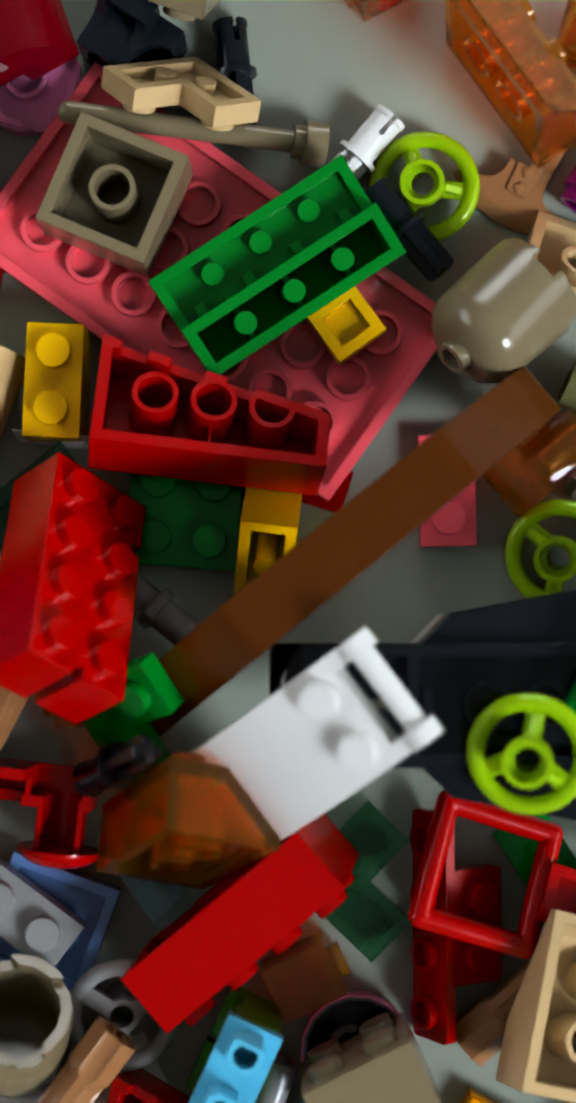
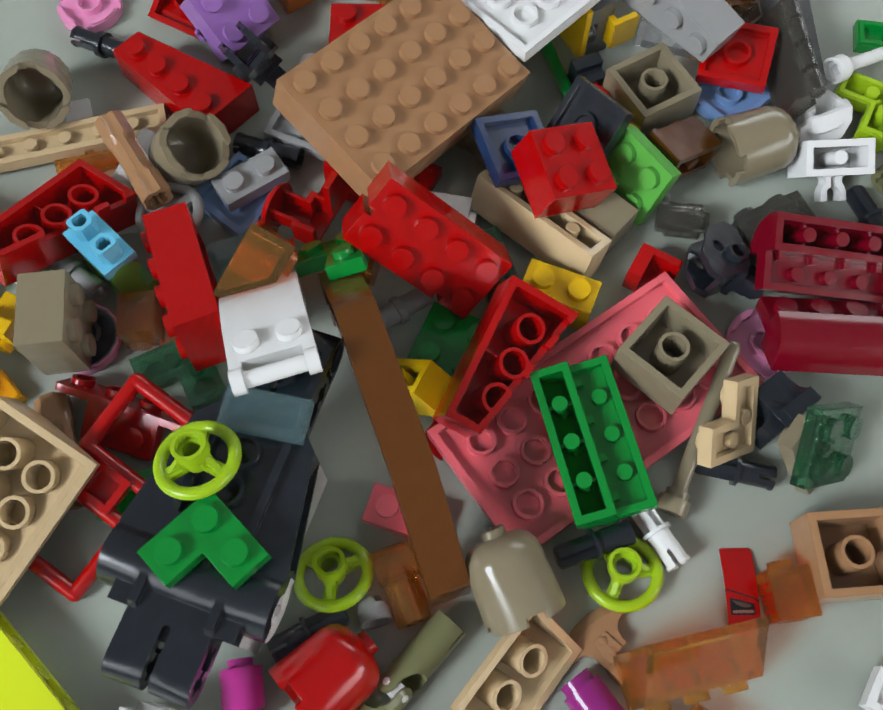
camera: 105 degrees right, 20 degrees down
(116, 765) = (308, 234): black axle -> none
(346, 325) = (539, 476): yellow plate -> none
(385, 35) = (740, 584): none -> red sticker
(432, 675) = (267, 415): none -> clear light blue tile

